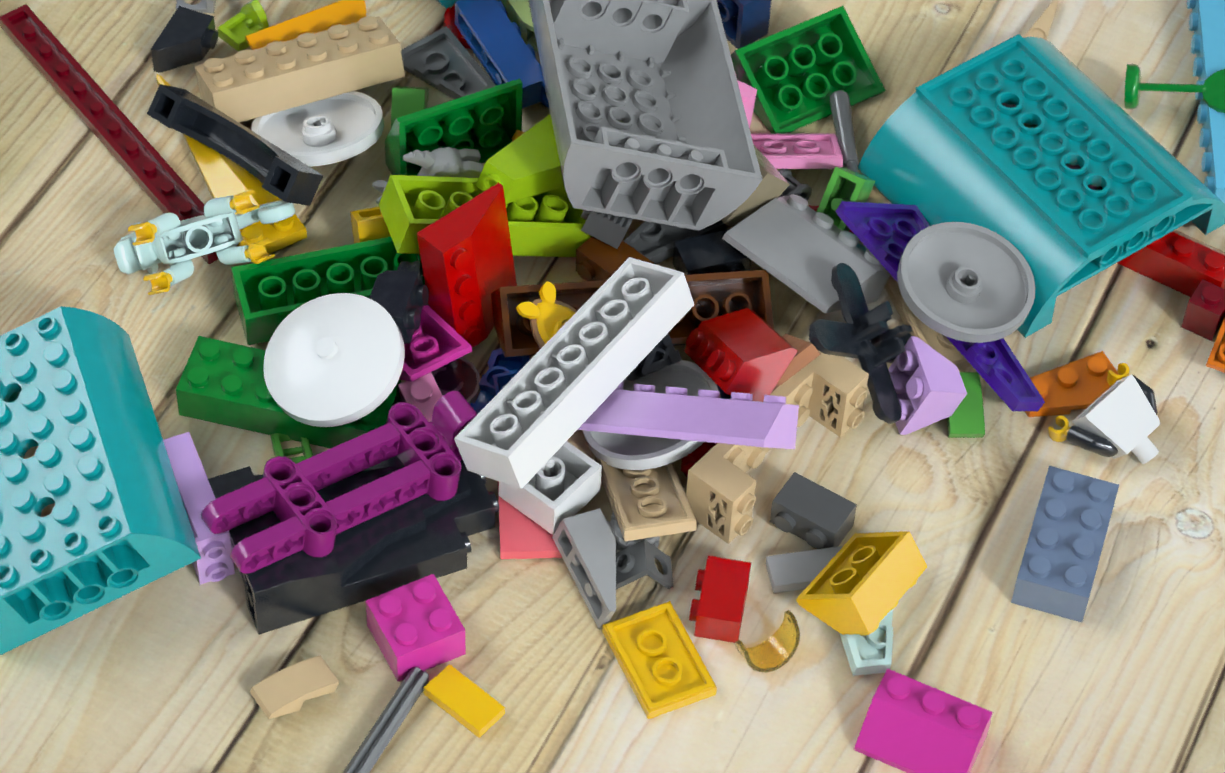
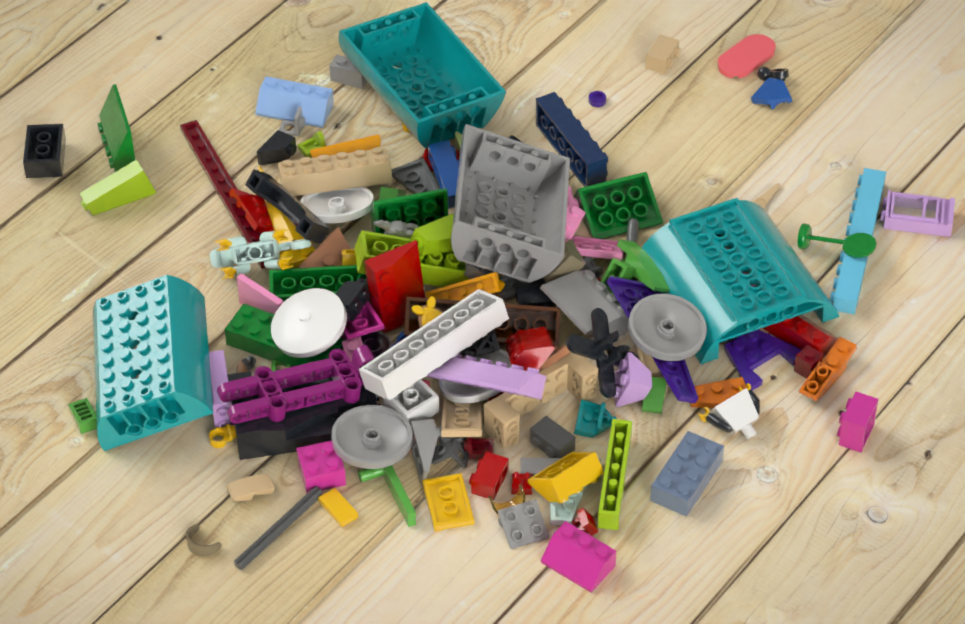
camera: 15 degrees right, 5 degrees down
(175, 157) = (255, 210): none -> red wing
(222, 320) = (257, 296): none -> bright pink tile
(225, 452) = (245, 364): none -> arm
(228, 588) = (228, 434): none -> yellow connector
(325, 222) = (328, 252): none -> nougat wing
(500, 560) = (372, 436): none -> light grey dish
(534, 615) = (396, 489): none -> bright green piece
(593, 257) = (489, 283): none -> light orange piece
(689, 549) = (478, 447): none -> dark red bracket
(776, 601) = (522, 479): none -> red tile
(806, 683) = (523, 524): none -> light grey hinge
(869, 464) = (592, 419): none -> teal slope
(889, 178) = (644, 266): none -> bright green slope
(917, 660) = (585, 521): none -> red tile
(947, 571) = (615, 474): none -> lime brick
(1109, 300) = (755, 349): none -> dark purple wing

